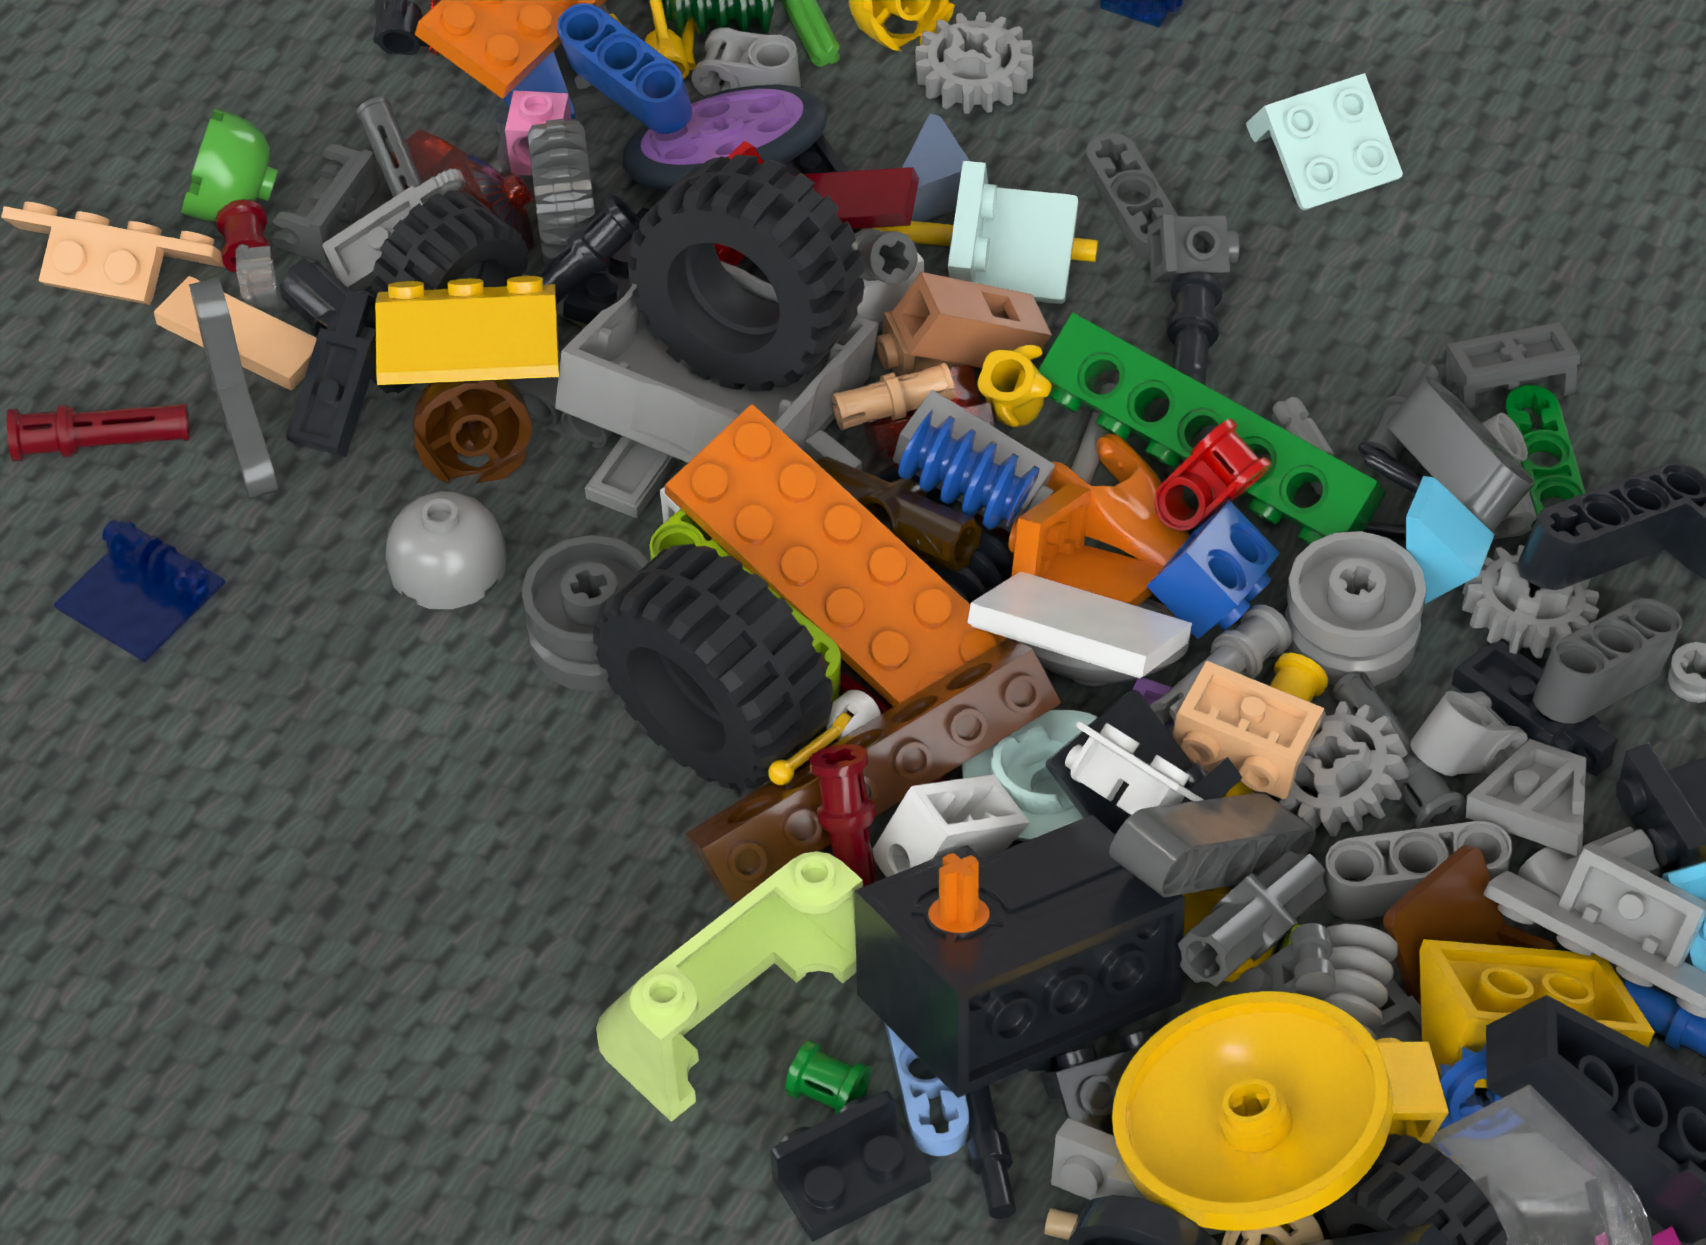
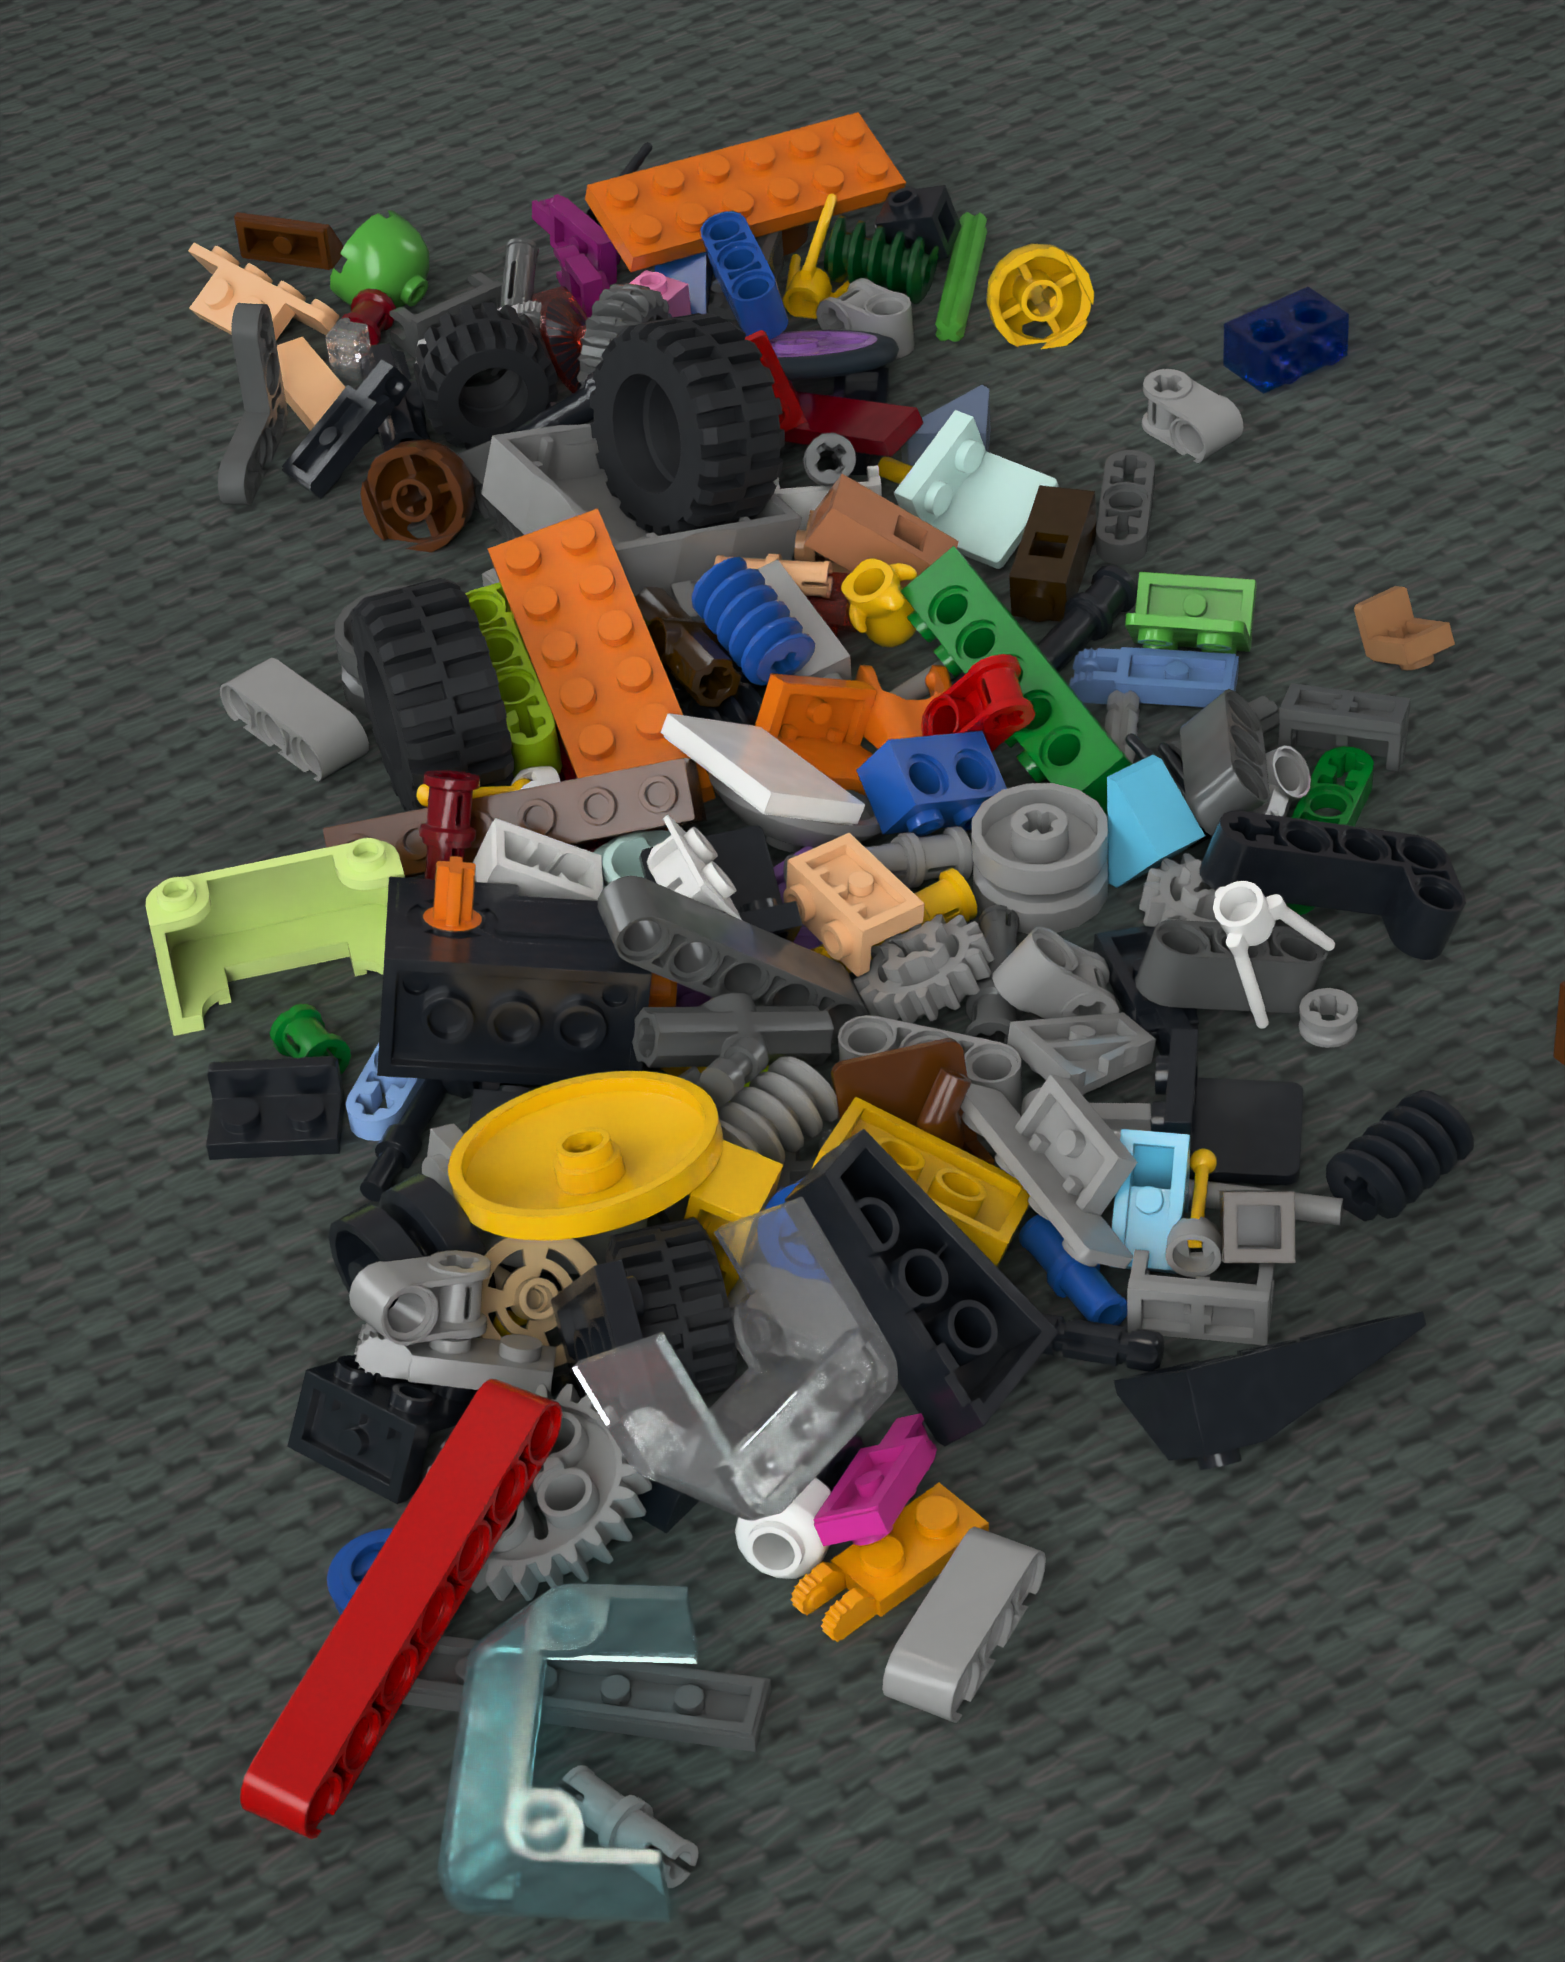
camera: 30 degrees right, 10 degrees down
(68, 431) = (123, 412): dark red pin -> none
(86, 169) = (287, 241): none -> reddish brown slope
(138, 591) = (86, 536): clear blue hinge -> none
(388, 67) = (572, 226): none -> magenta hinge
(432, 114) = (580, 277): none -> magenta plate
(445, 550) = (328, 573): light grey cylinder -> none
(466, 332) = (436, 407): yellow slope -> none
(530, 721) = (295, 717): none -> light grey beam
(974, 62) = (1066, 367): light grey gear -> none
(1121, 274) = (1052, 553): none -> dark brown brick
(1127, 82) = (1189, 414): none -> light grey piece
(1173, 249) = (1118, 528): dark grey brick -> none
(1292, 295) = (1193, 612): none -> bright green bracket
(1302, 370) = (1154, 675): none -> medium blue hinge
(1329, 141) = (1332, 512): light aqua bracket -> none
(1482, 253) = (1395, 636): none -> medium nougat bracket
(1496, 914) = (942, 1105): none -> reddish brown arm
(1634, 620) = (1249, 921): none -> white plant

